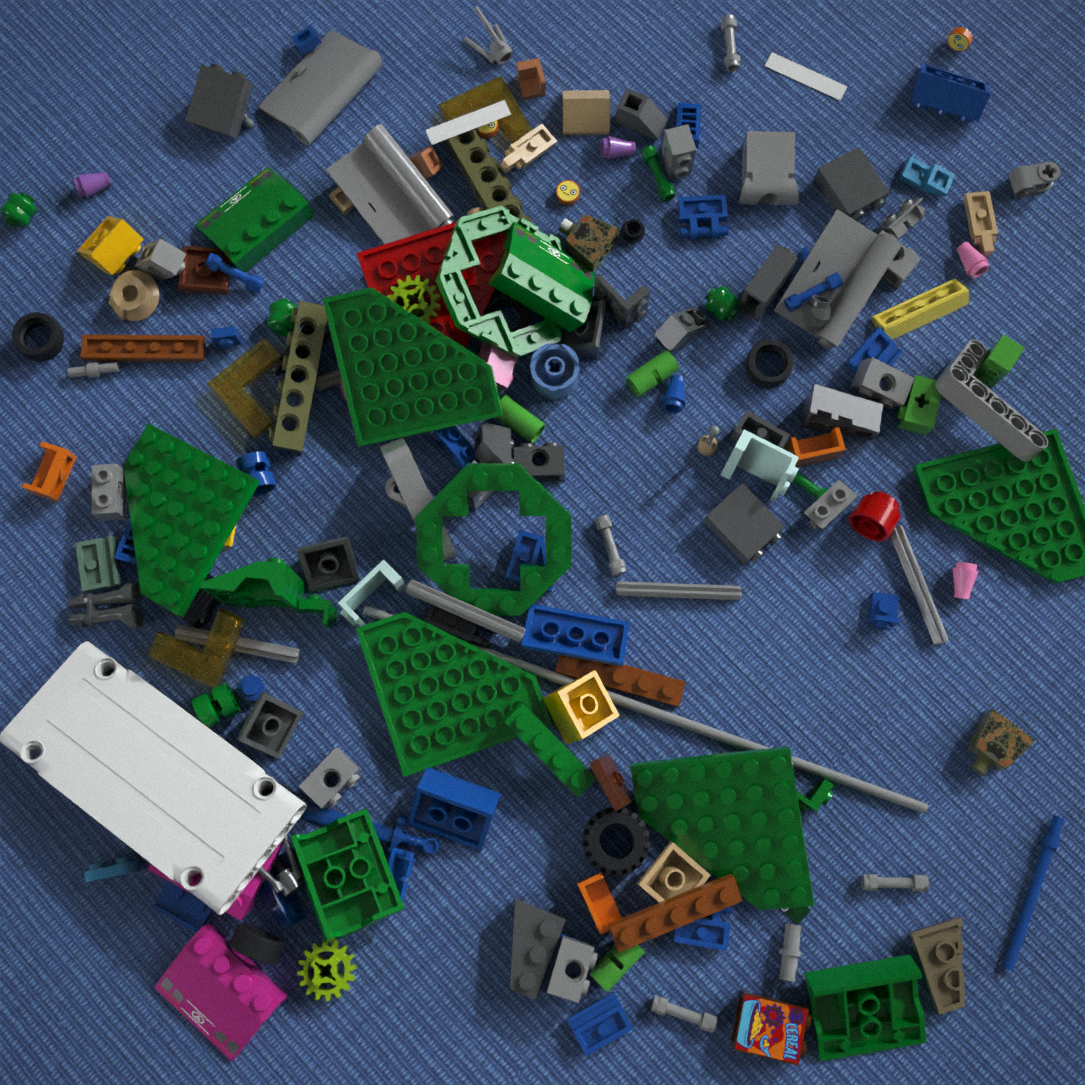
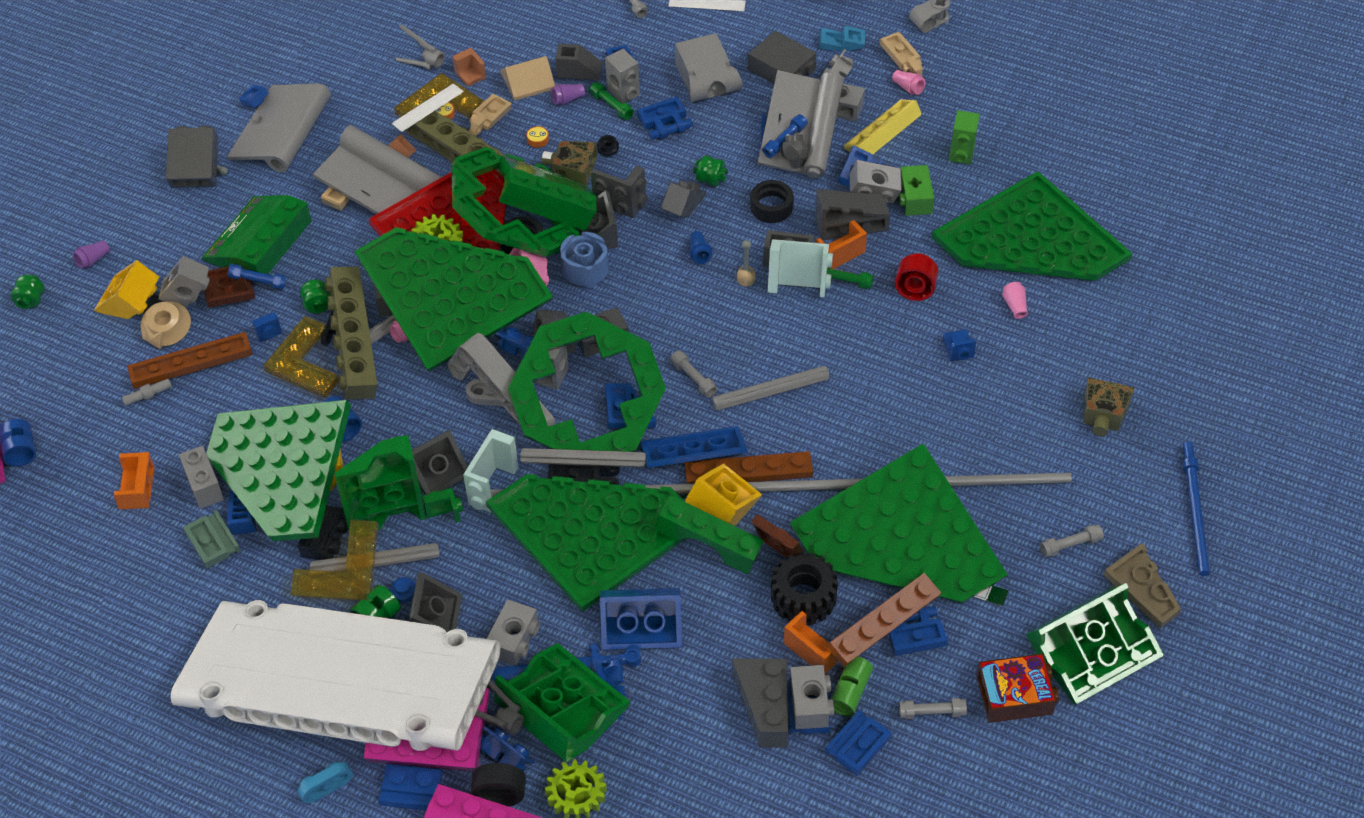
camera: 20 degrees left, 25 degrees down
(30, 321) = (79, 368): black tyre -> none
(129, 614) = (211, 577): dark grey piece -> none
(520, 420) = (569, 304): bright green pin -> none
(652, 373) = (672, 237): bright green pin -> none
(672, 874) = (866, 592): tan slope -> none
(744, 524) = (805, 319): dark grey brick -> none
(767, 282) = (742, 142): dark grey brick -> none
(790, 952) = (1006, 625): light grey pin -> none
(820, 795) = (972, 494): green bracket -> none
(830, 505) = (873, 282): light grey hinge -> none
(918, 586) = (980, 318): light grey axle -> none
(986, 407) = (974, 169): light grey beam -> none

